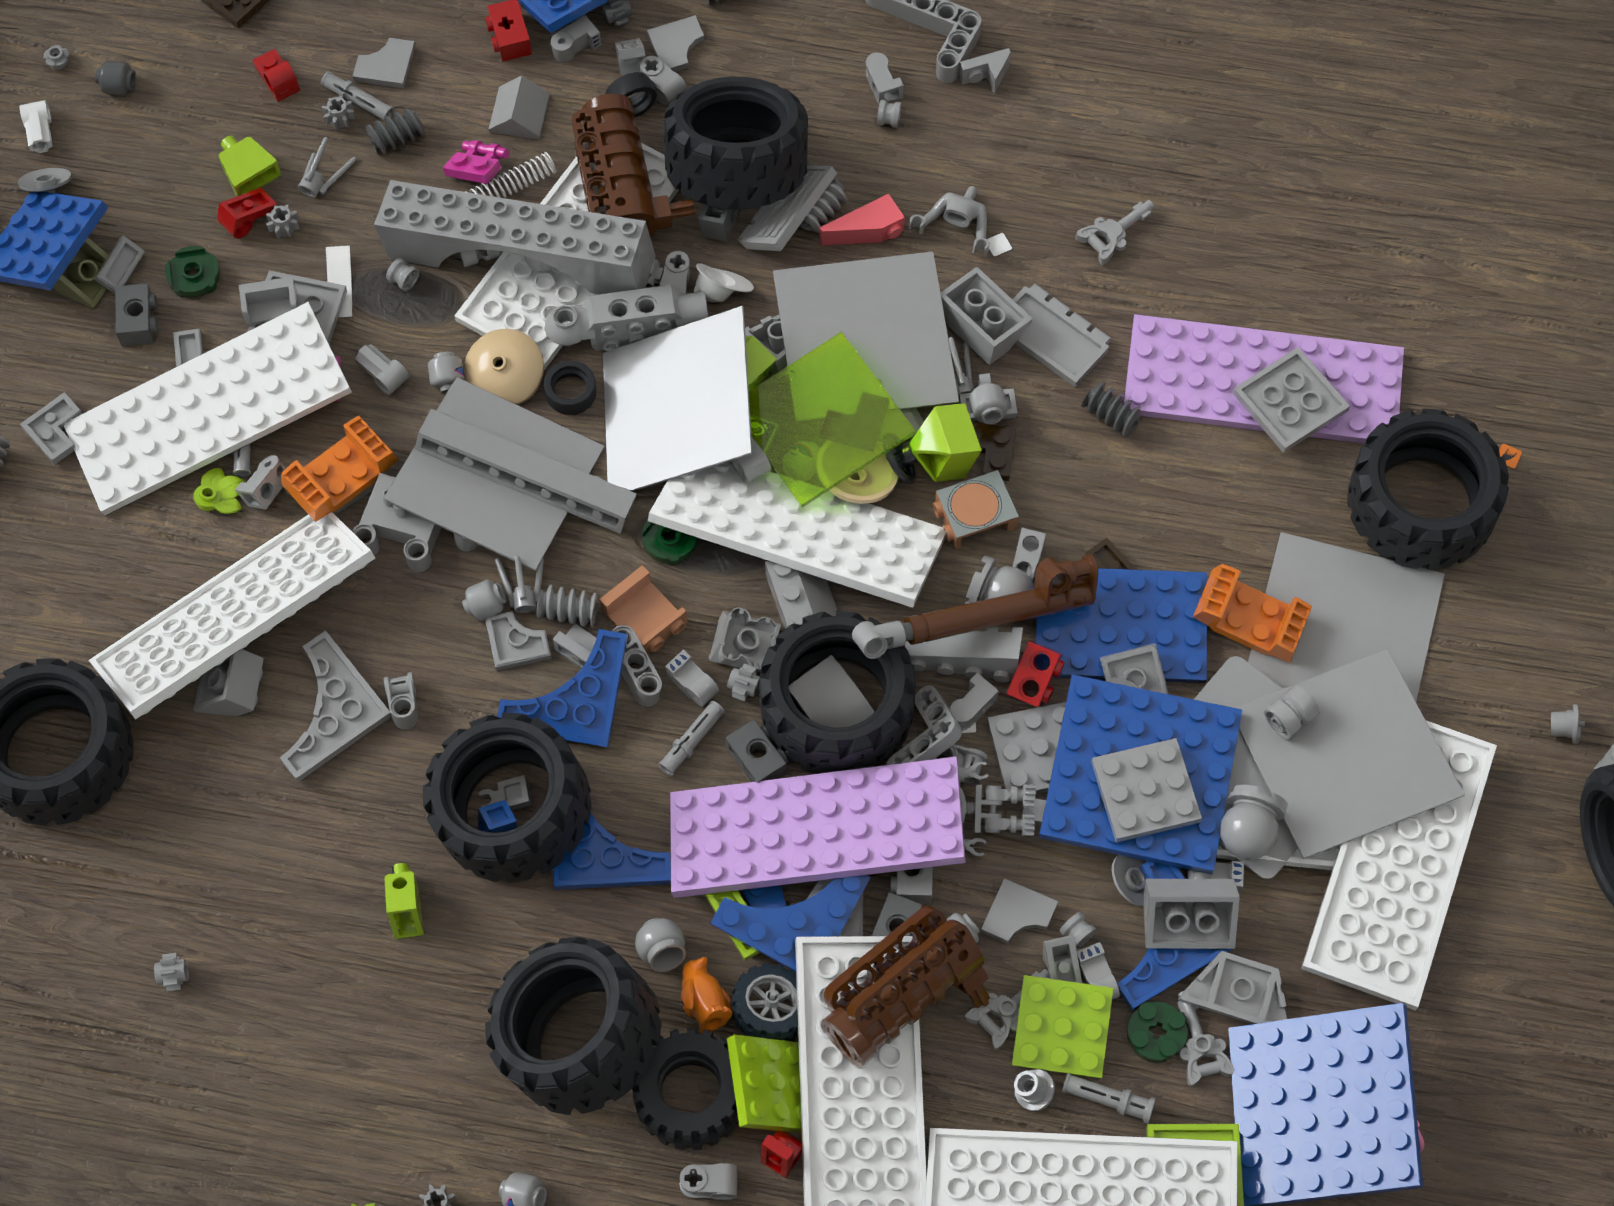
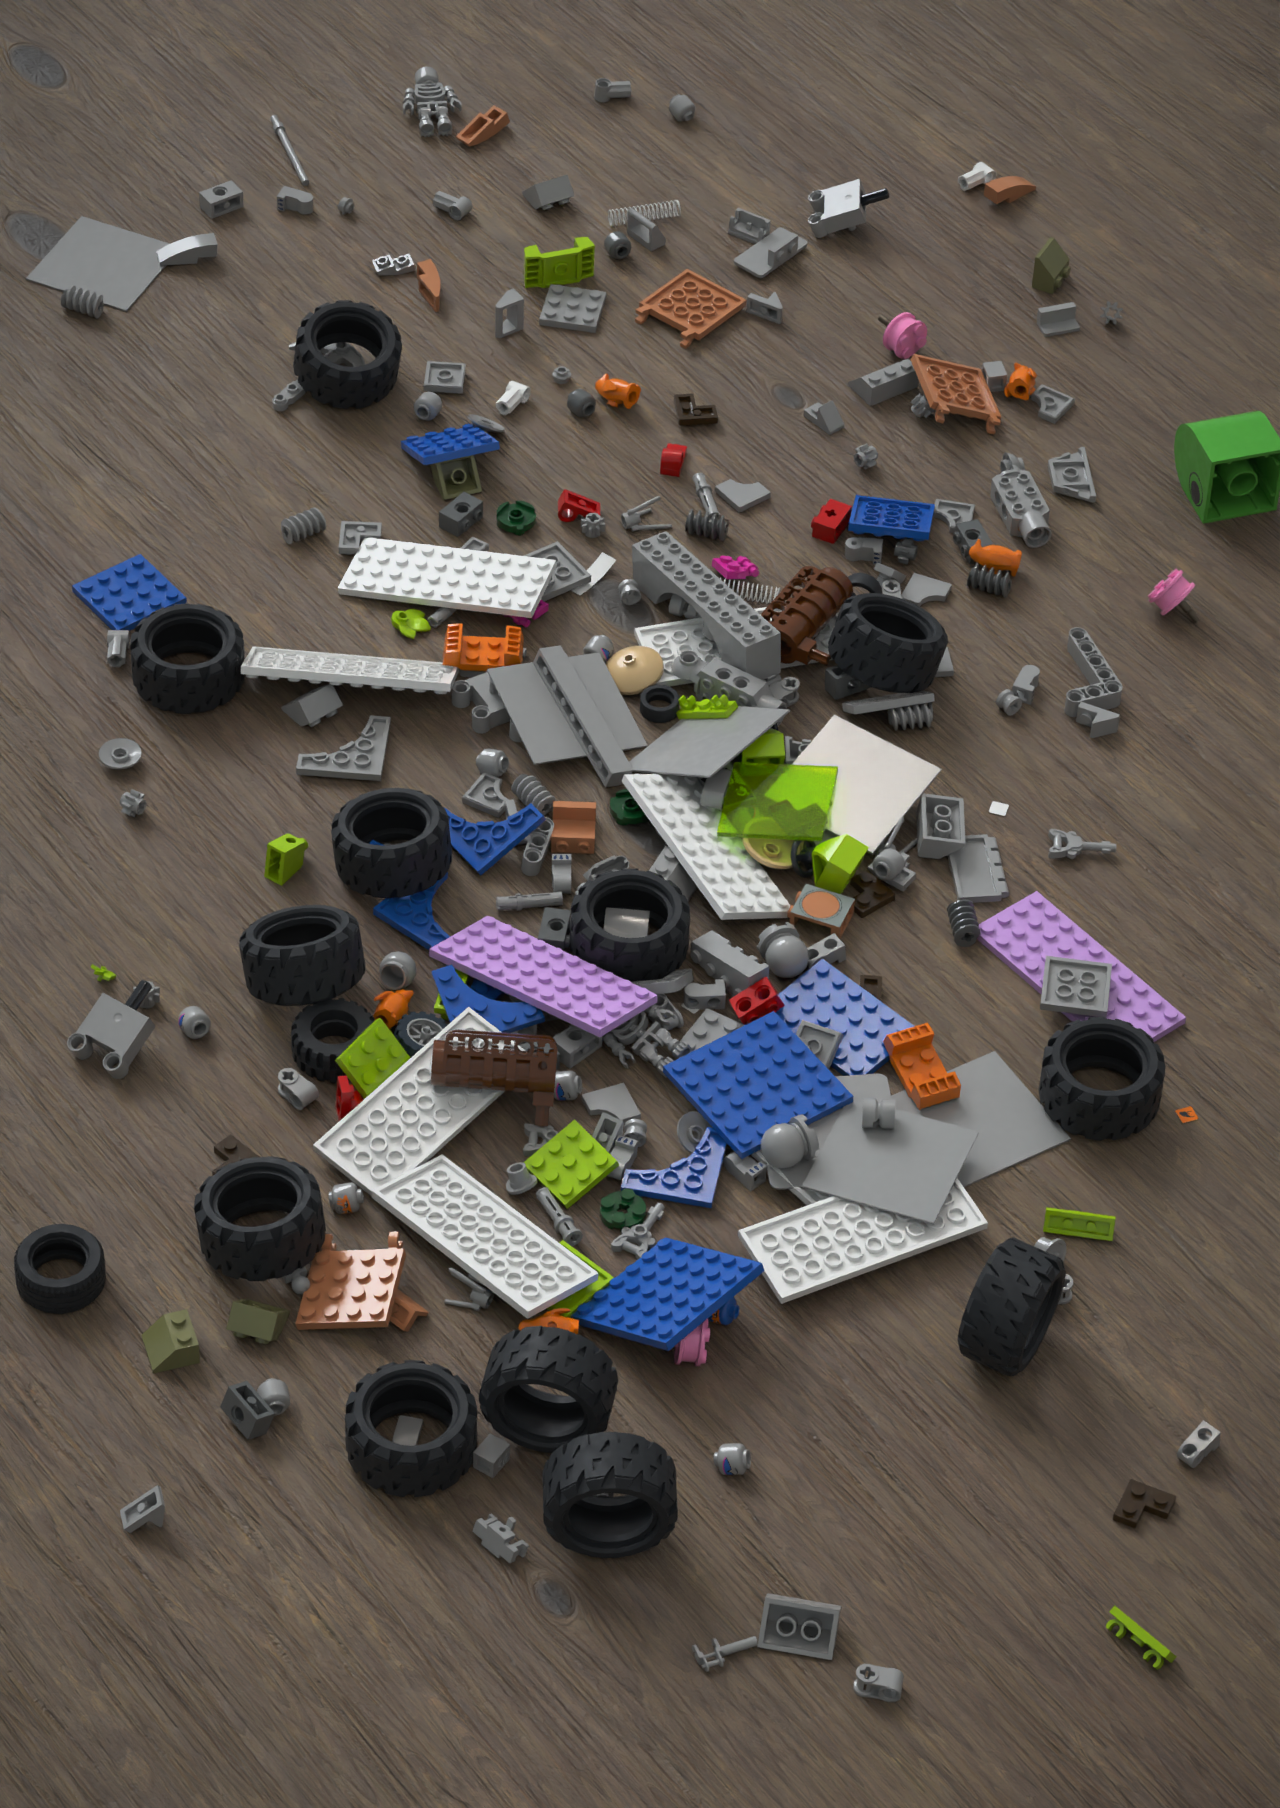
camera: 40 degrees right, 20 degrees down
(85, 908) = (120, 753): none -> light grey dish
(119, 264) = (481, 486): light grey tile -> none
(140, 36) = (618, 391): none -> orange animal
(247, 164) = (604, 487): lime torso -> none
(263, 484) = (433, 632): light grey leg -> none
(267, 299) = (538, 546): light grey panel -> none
(338, 112) = (685, 496): light grey gear -> none
(386, 373) = (565, 628): light grey piece -> none
(400, 696) = (395, 774): light grey piece -> none
(519, 109) = (790, 561): light grey slope -> none
(523, 599) = (516, 771): light grey plant -> none
(629, 359) = (706, 709): none -> lime plate
(719, 283) = (802, 712): white piece -> none
(867, 224) = (927, 743): coral slope -> none
(959, 212) = (990, 772): light grey piece -> none
(1056, 589) = (815, 968): reddish brown piece -> none
(1146, 790) = (746, 1086): light grey plate -> none
(1191, 913) = (704, 1163): light grey slope -> none
(1238, 990) = (691, 1220): light grey wing -> none
(1558, 668) = (1079, 1224): none -> lime plate

